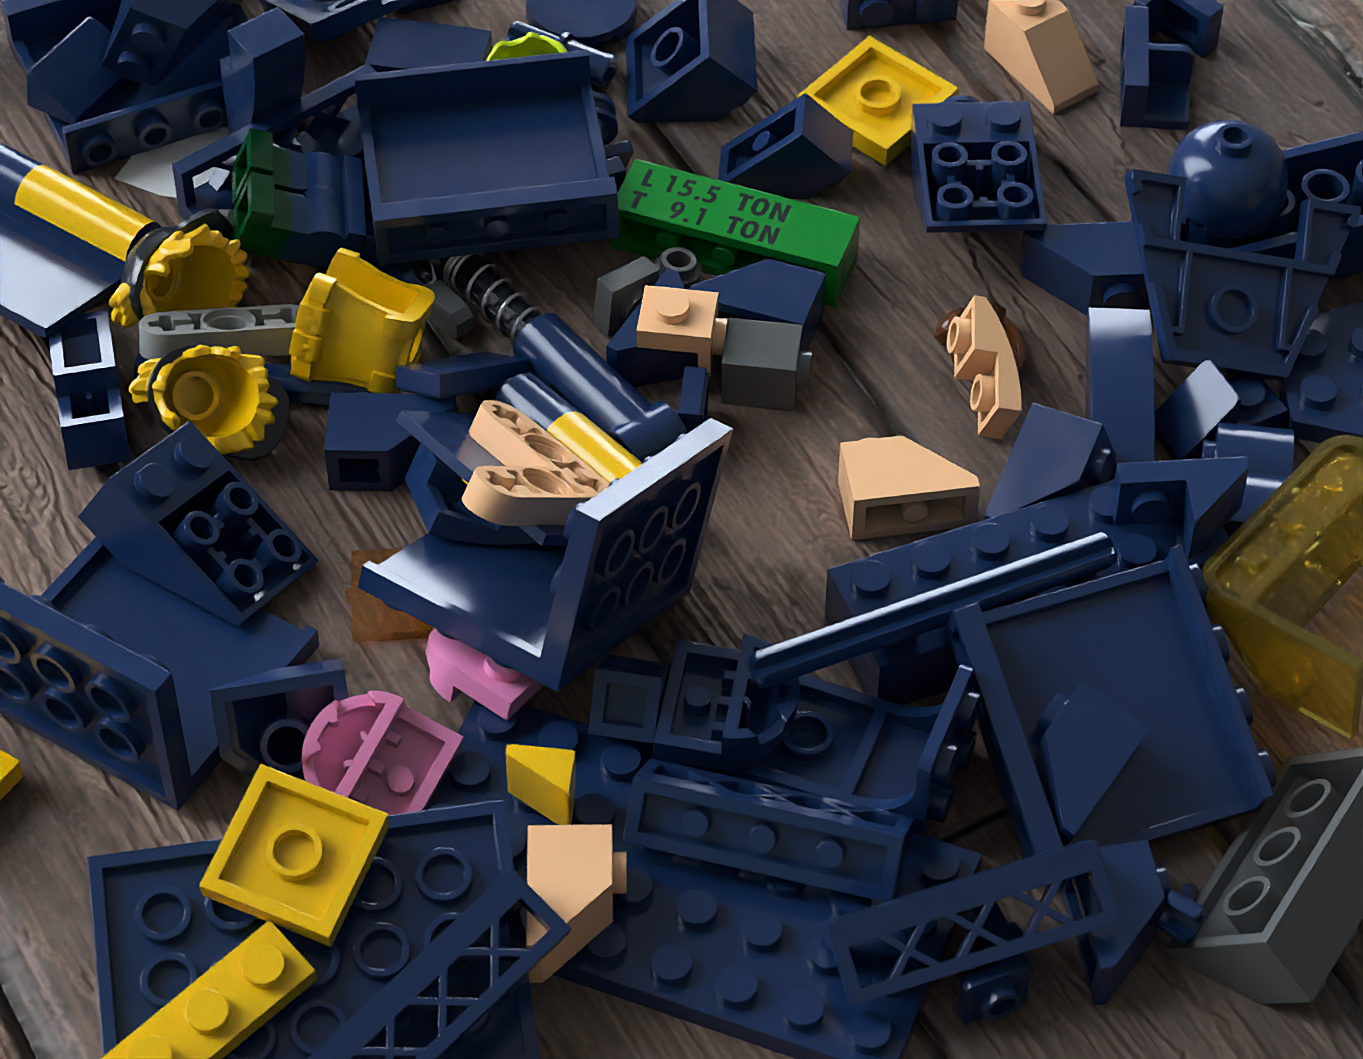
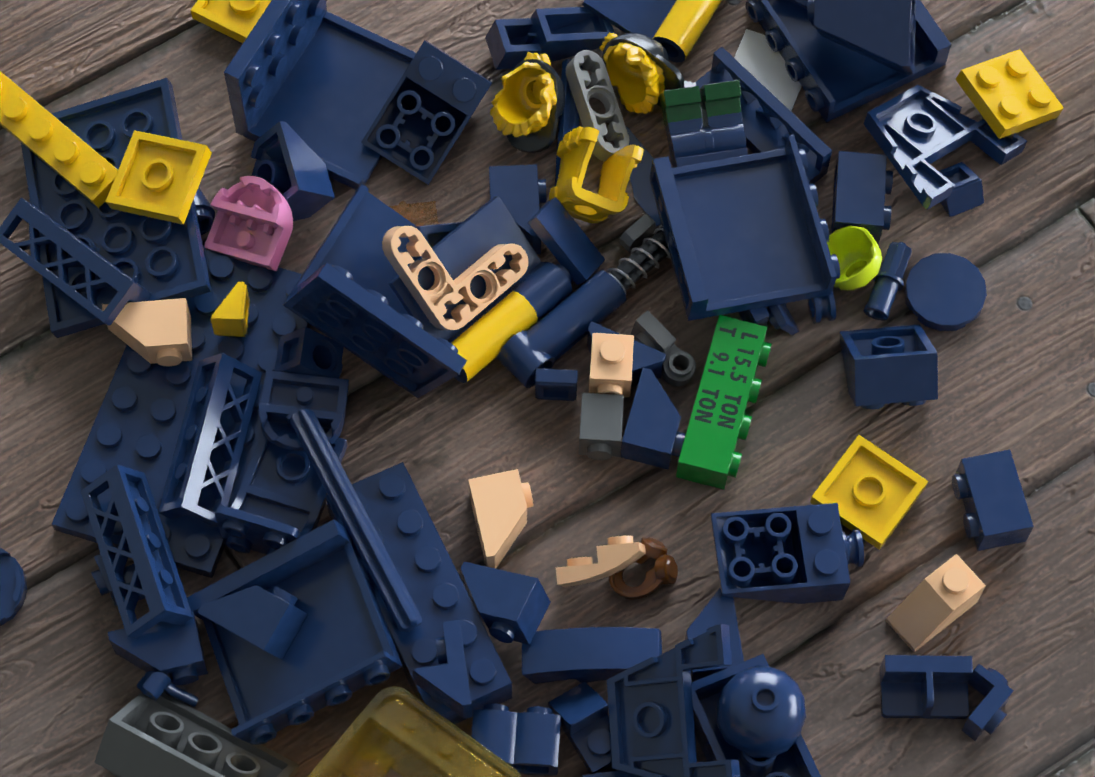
camera: 85 degrees right, 15 degrees up
(262, 68) = (791, 80): dark blue slope -> none
(790, 152) = (800, 433): dark blue slope -> none

